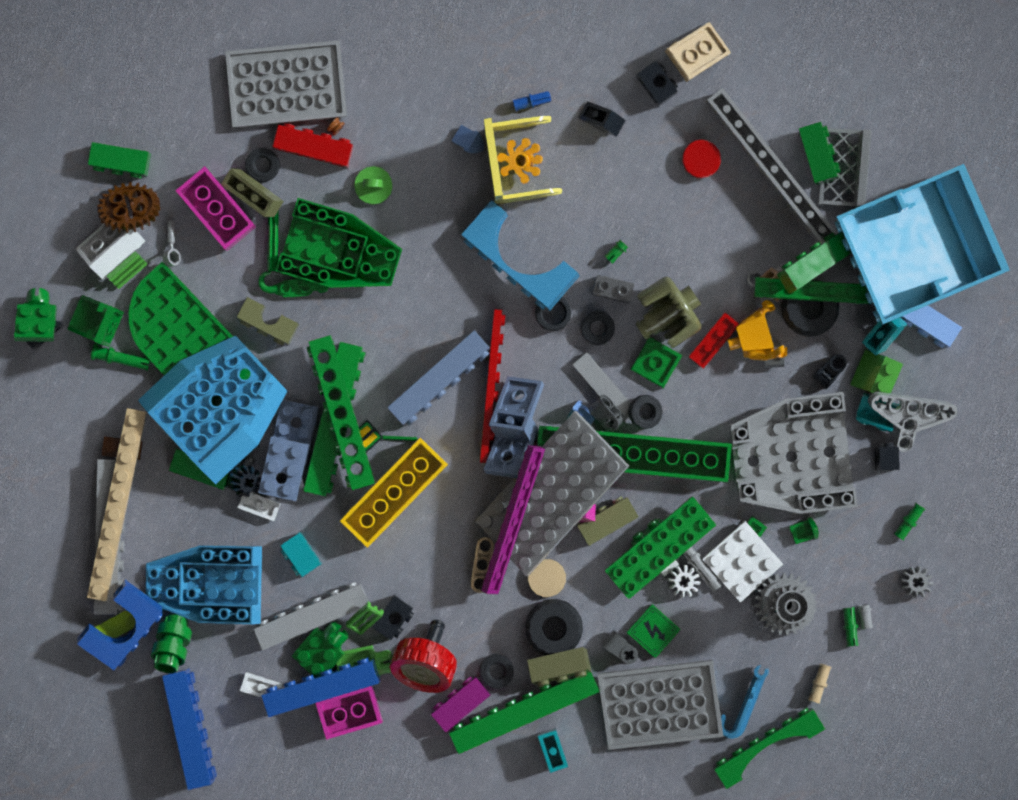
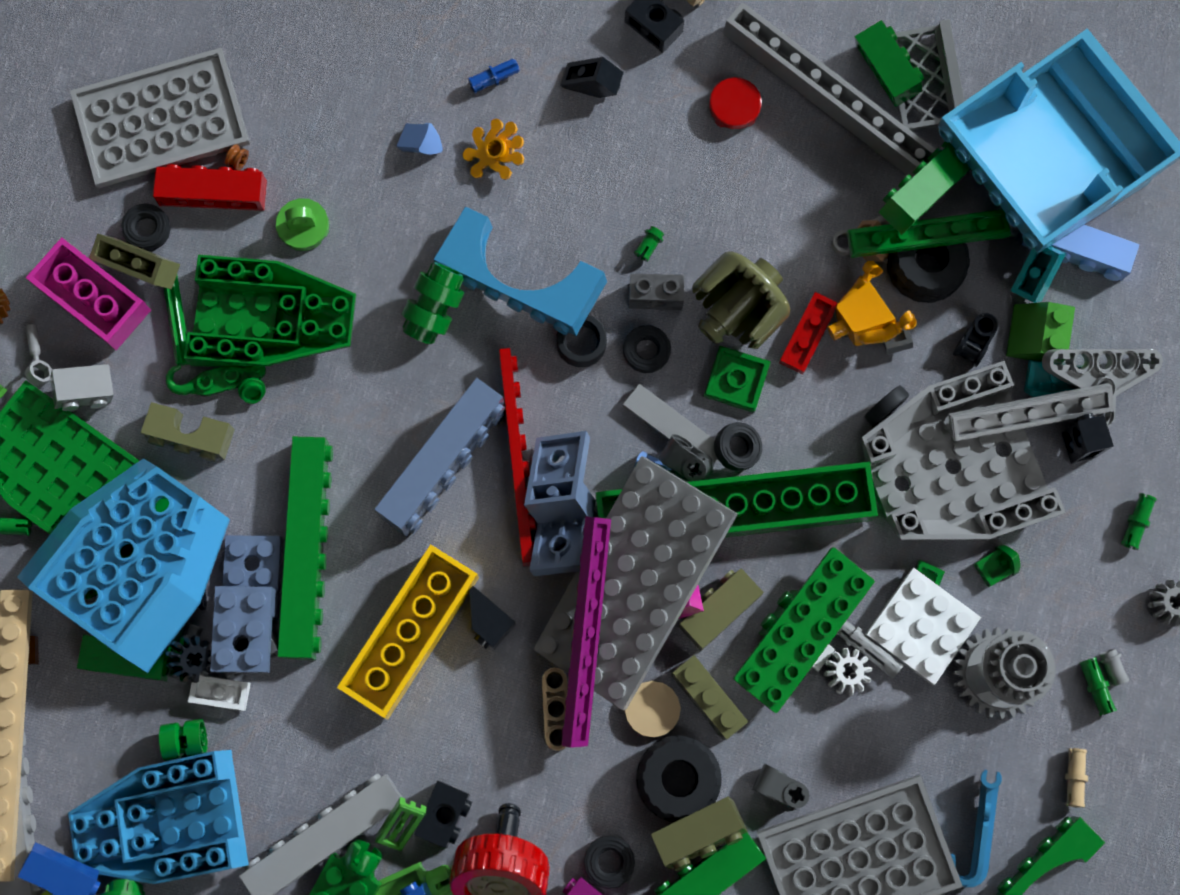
camera: 15 degrees left, 10 degrees down
(200, 275) = (81, 387): none -> light grey brick
(224, 529) = (173, 742): none -> green wheel
(300, 554) = (291, 751): teal brick -> none
(314, 349) = (272, 443): green brick -> none
(317, 301) = (251, 390): none -> green plate
(371, 436) = (358, 562): piece -> none
(448, 495) = (488, 620): none -> black slope
(449, 273) = (427, 314): none -> green piece
(490, 128) = (470, 106): light yellow piece -> none
(586, 579) = (709, 698): none -> olive brick
(653, 631) = (821, 753): green tile -> none
(754, 405) = (886, 405): none -> black tyre
(852, 432) = (1031, 412): none -> light grey tile

